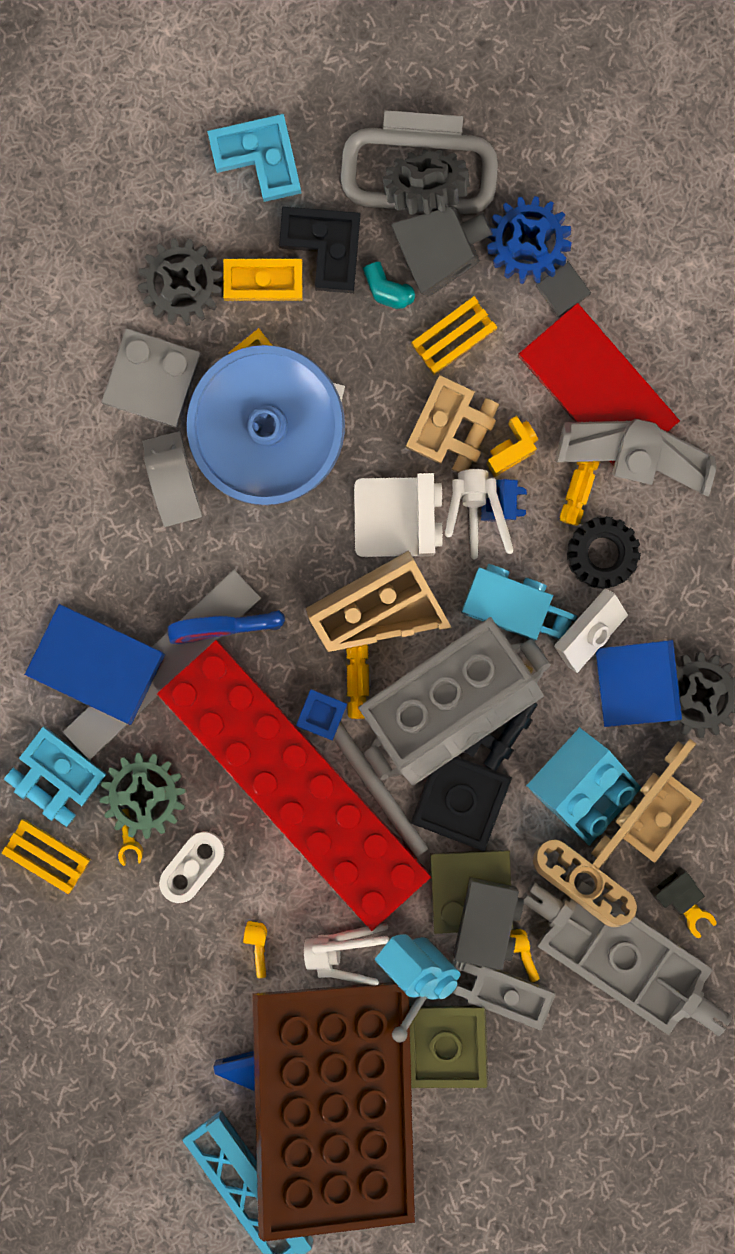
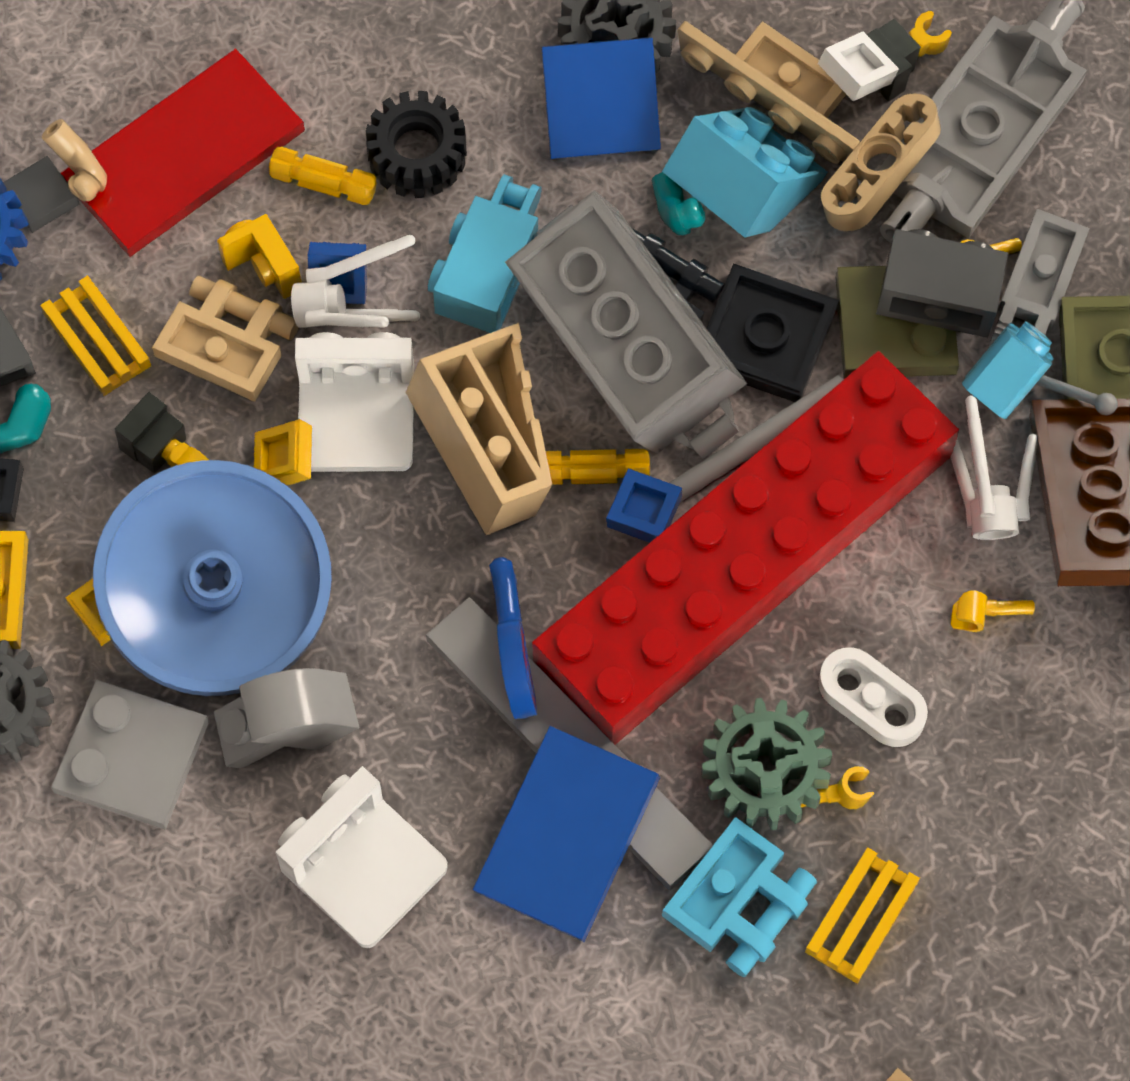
camera: 90 degrees left, 20 degrees down
(75, 532) = (359, 859): none -> white bracket
(361, 468) = (285, 451): none -> yellow tile
(373, 381) = (154, 436): none -> pearl dark grey piece
(548, 739) = (673, 209): none -> teal arm
(583, 315) = (89, 174): none -> tan arm
(591, 630) = (525, 156): white plate -> none
(638, 452) = (277, 95): light grey plate -> none
(660, 869) = (858, 66): none -> white plate

